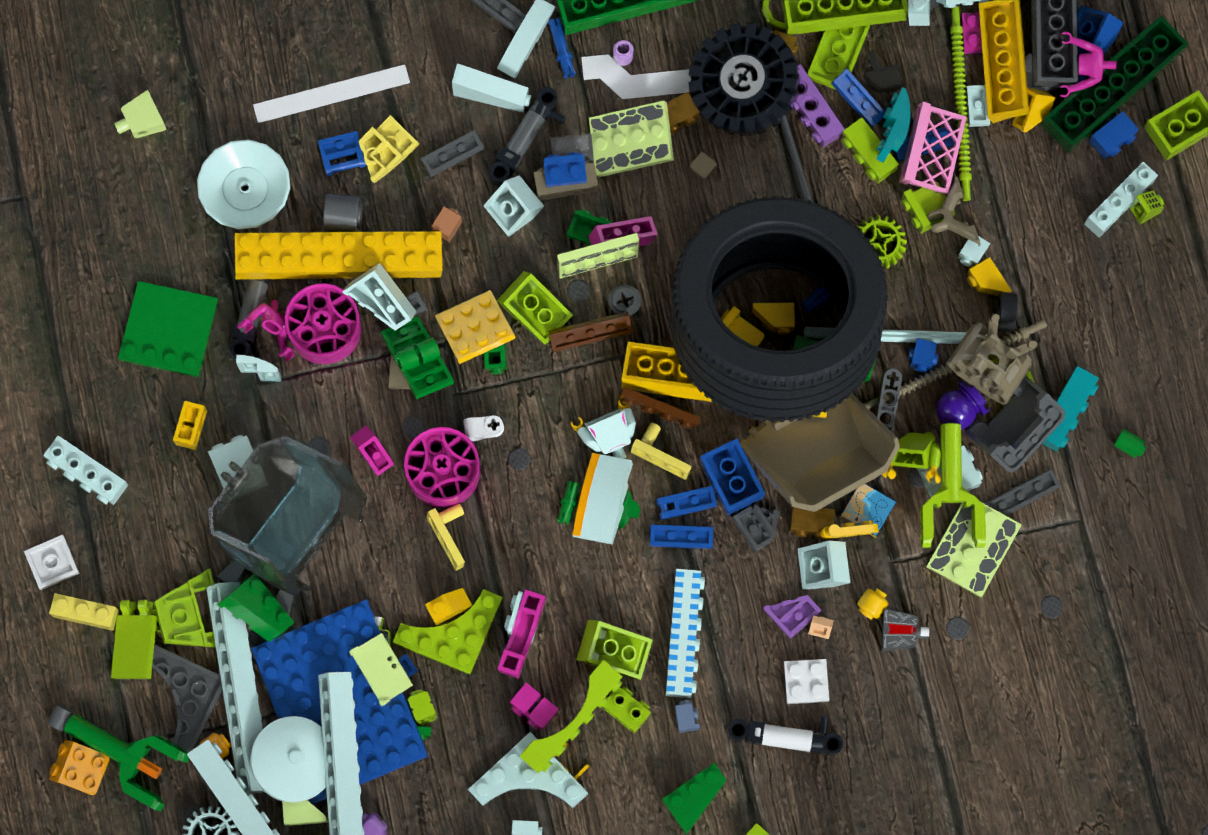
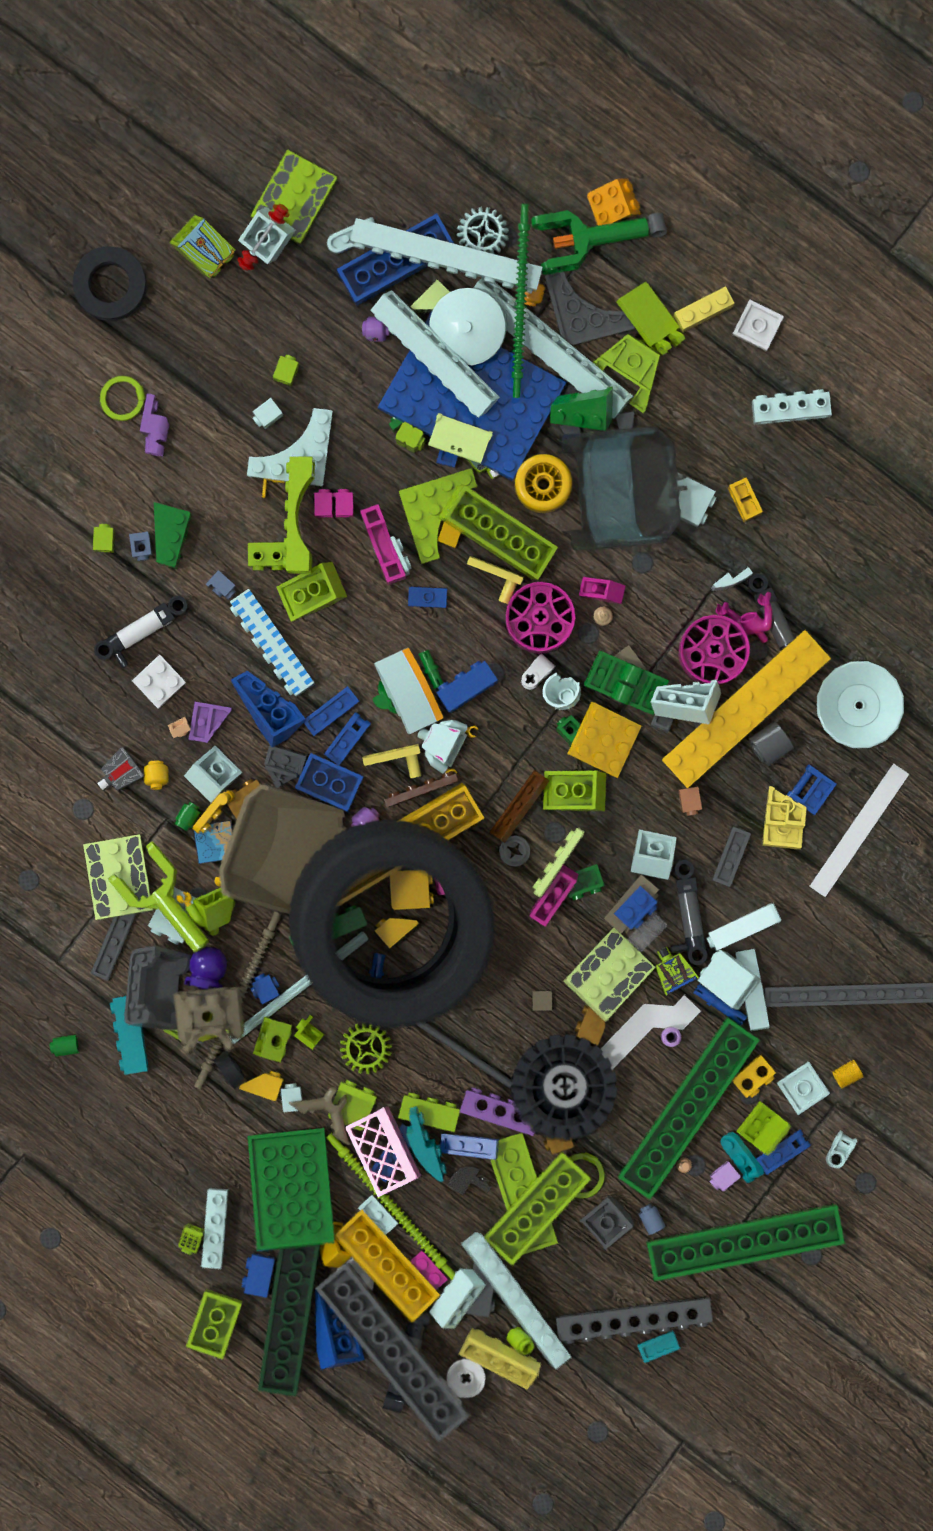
camera: 145 degrees right, 10 degrees up
(168, 329) = (823, 557): green plate -> none
(172, 796) = (523, 227): none -> green hose
(340, 560) = (543, 468): none -> yellow wheel
(389, 429) = (603, 616): none -> tan plate
(417, 564) = (498, 532): none -> lime brick
(476, 392) = (561, 693): none -> light aqua helmet
(521, 565) = (427, 597): none -> blue plate
(538, 58) = (728, 979): none -> light aqua brick
(551, 461) = (466, 686): none -> blue brick
(577, 101) = (673, 971): none -> torso
(724, 816) = (136, 540): none -> sand blue brick
(727, 423) = (365, 815): none -> medium lavender head
(732, 575) = (272, 714): none -> blue wedge
(874, 547) = (187, 816): none -> green brick
(890, 408) = (257, 927): dark grey beam -> none
(917, 291) = (308, 1033): none -> lime bracket
(951, 309) = (269, 1029): none -> lime brick
(1034, 177) = (290, 1189): none -> green plate
(1090, 64) = (317, 1310): dark pink piece -> none

